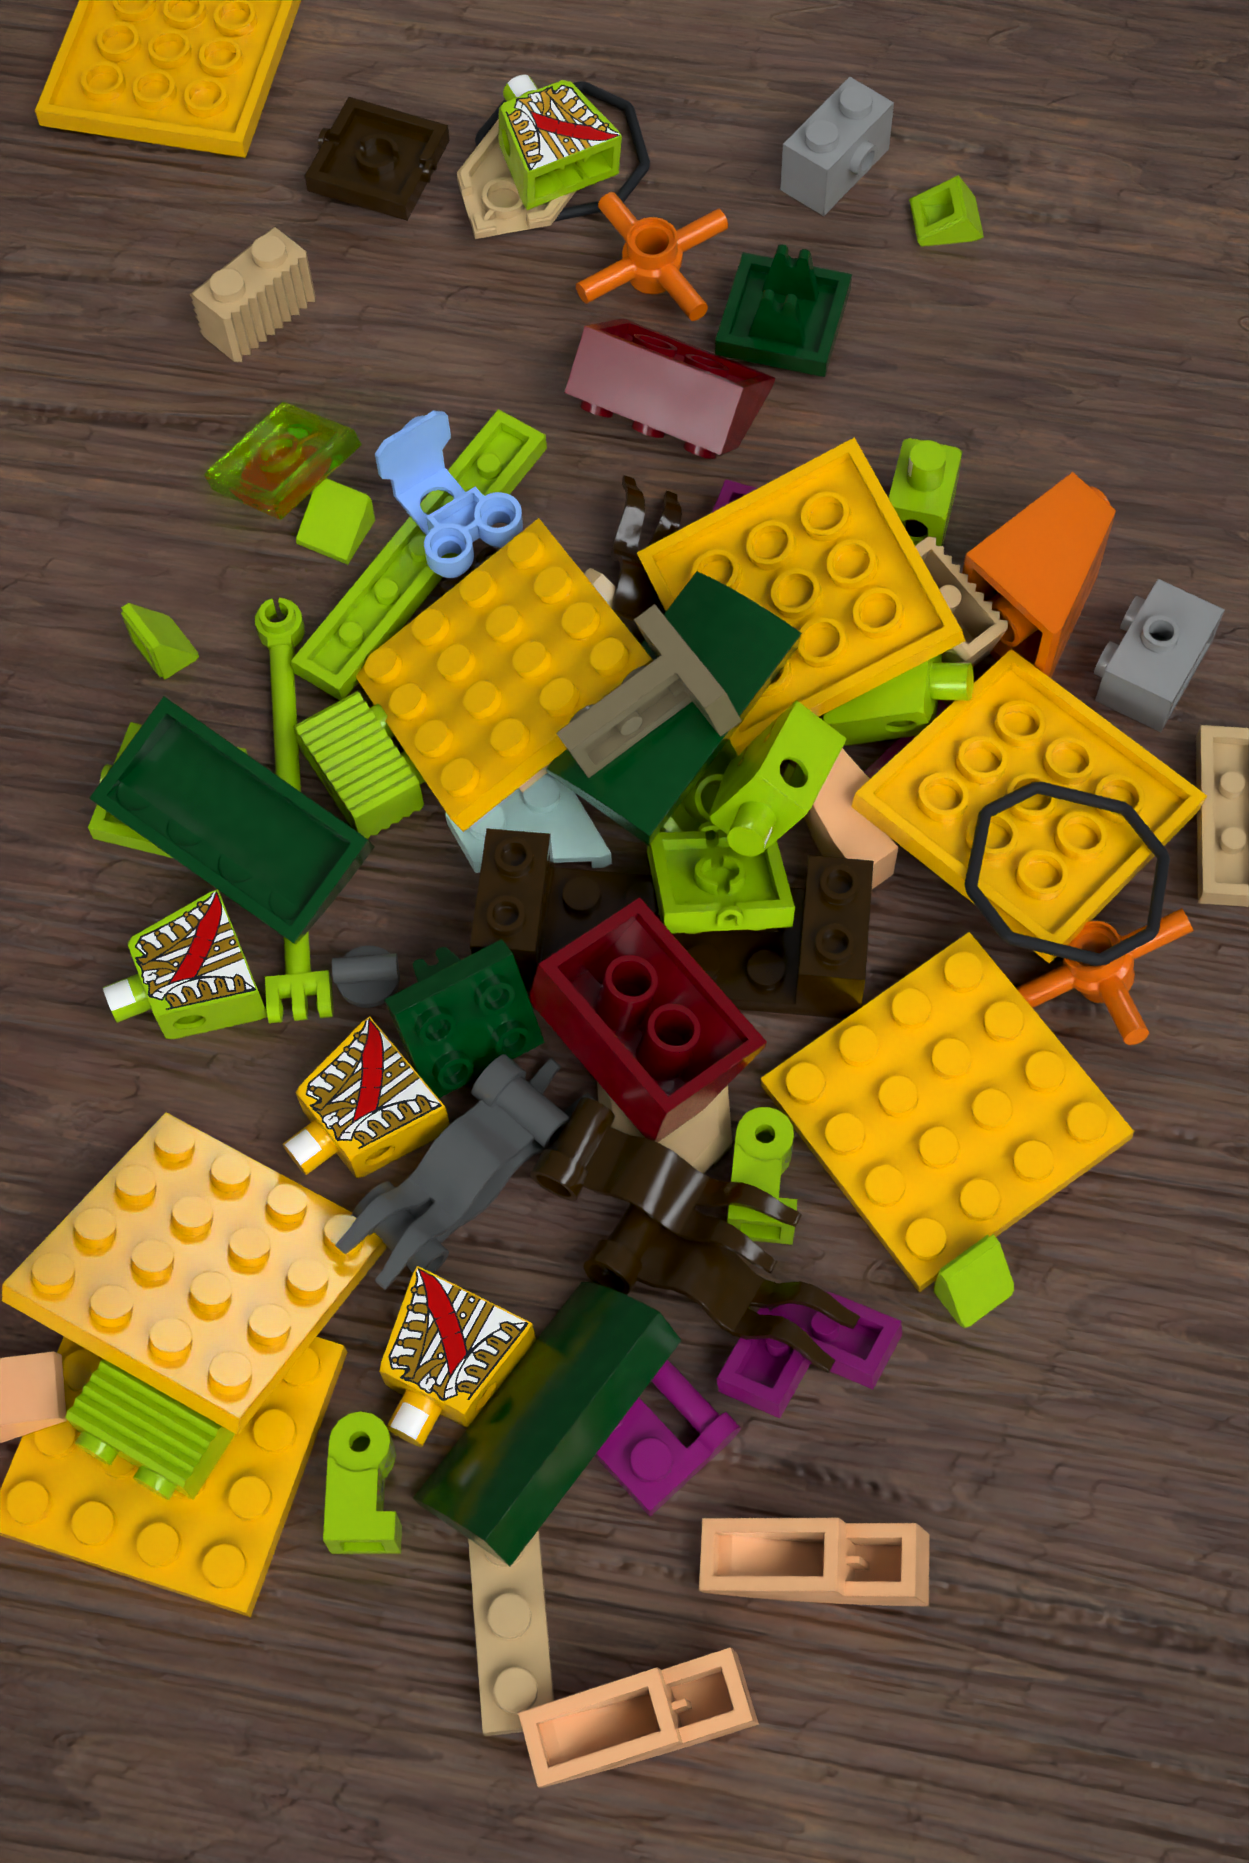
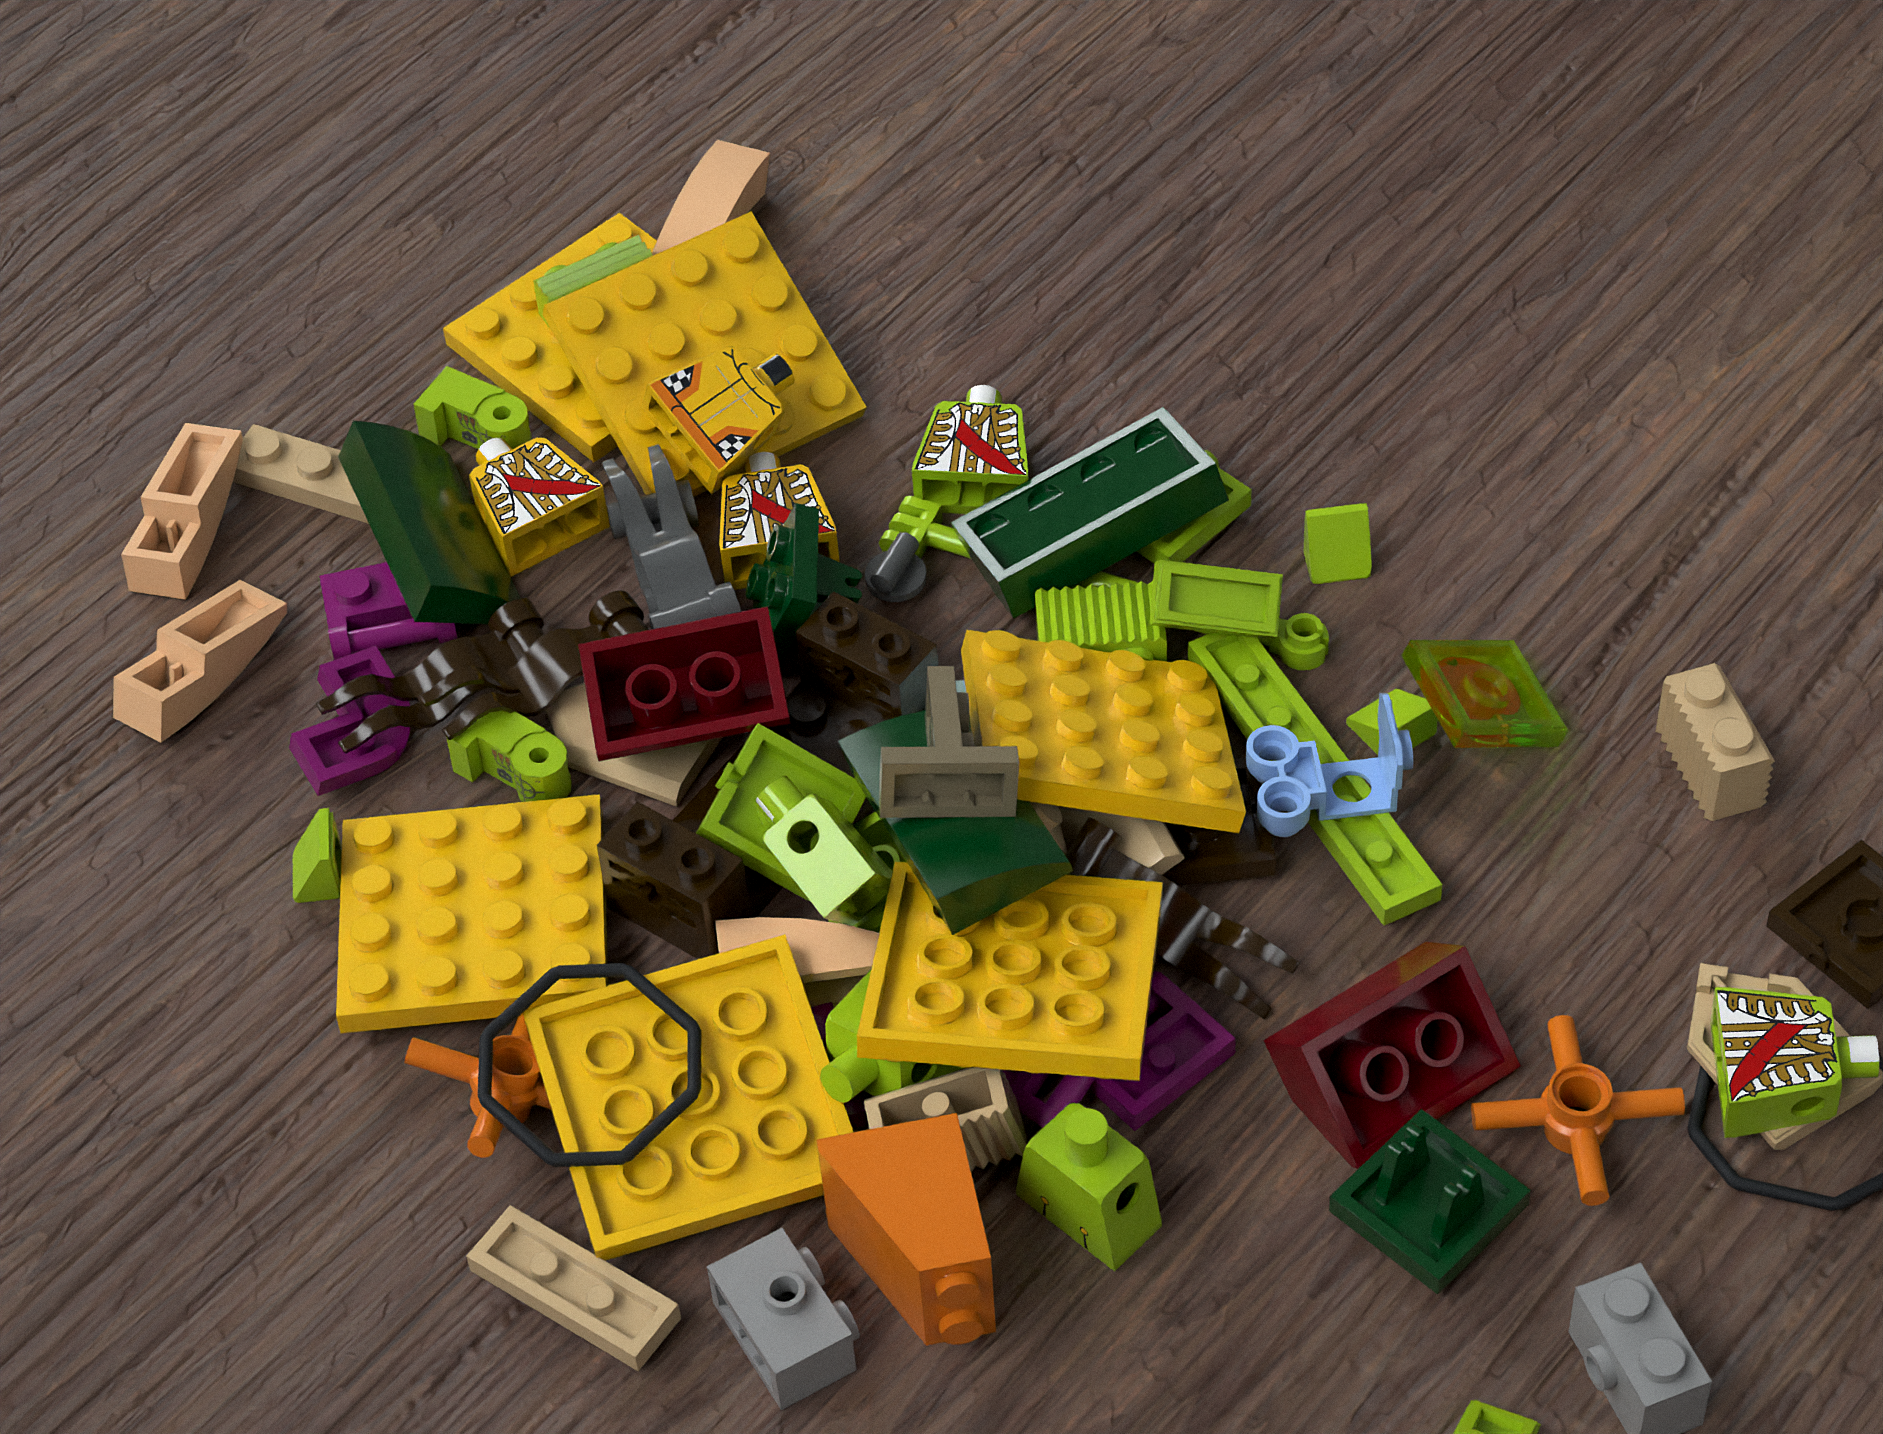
camera: 120 degrees right, 15 degrees down
(278, 1190) = (718, 410): none -> torso
(301, 662) = (1216, 599): none -> lime tile

